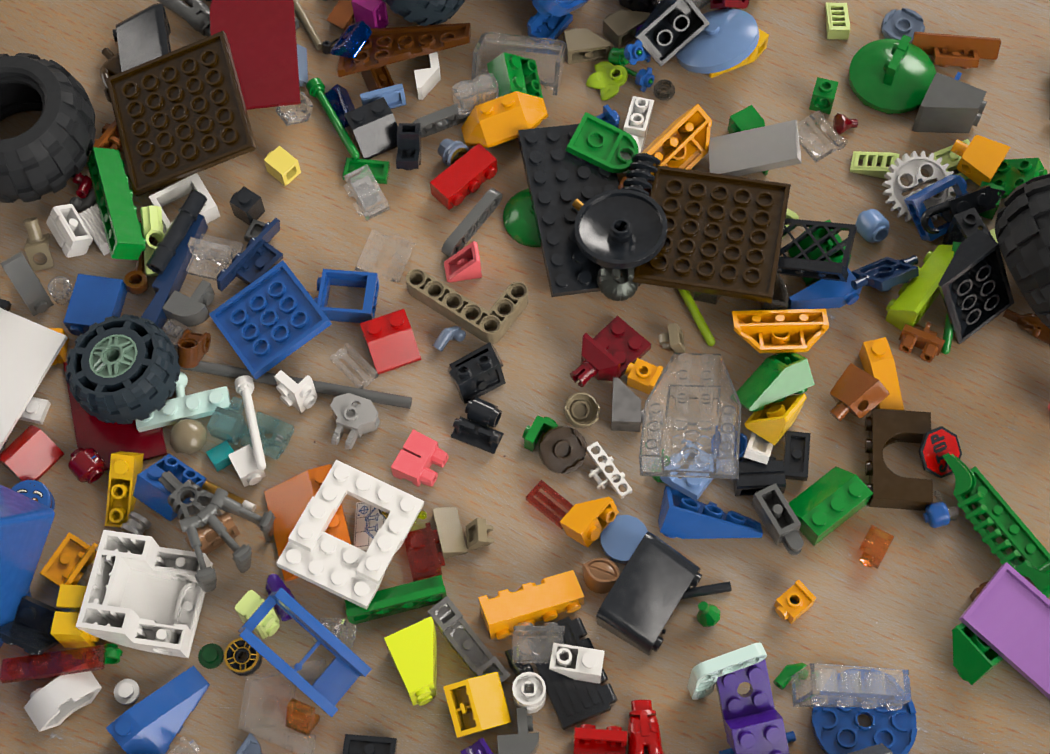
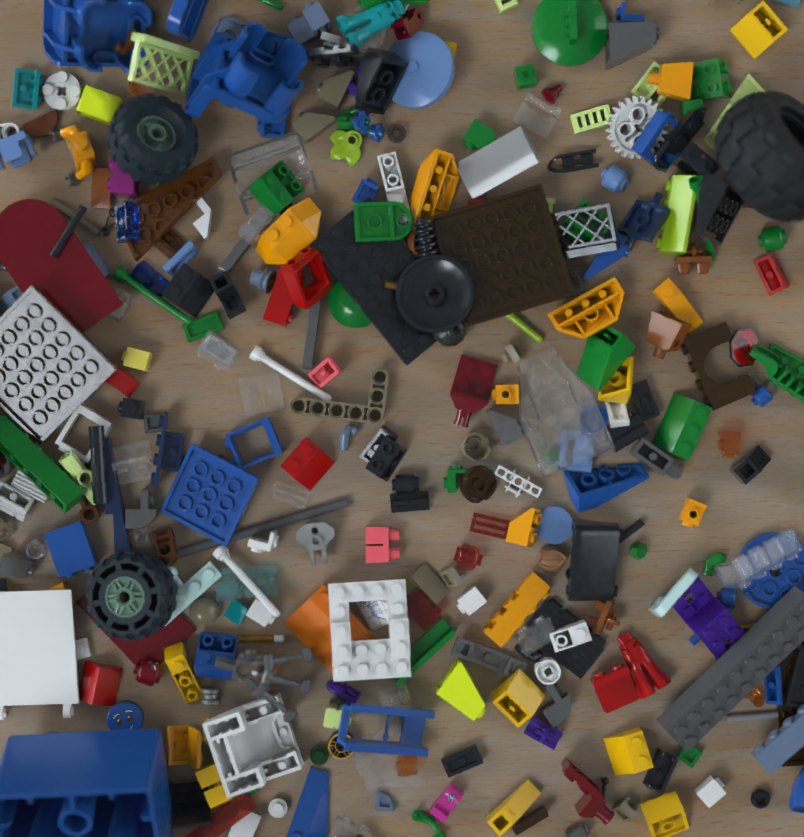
camera: 30 degrees left, 25 degrees up
(252, 175) = (123, 382): none -> red slope
(290, 17) = (68, 231): none -> black bar
(405, 218) = (259, 355): none -> white piece
(484, 571) = (470, 601): none -> white brick
(507, 520) = (468, 556): none -> clear red head
(513, 161) = (321, 284): none -> red window
(631, 669) = (599, 624): none -> dark orange hips
(792, 720) = (727, 596): none -> blue piece
(830, 192) = (569, 163): none -> black piece
(888, 581) = (750, 465): none -> black slope
(1006, 397) = (771, 273): none -> red slope
(1023, 359) = (772, 238): none -> green head

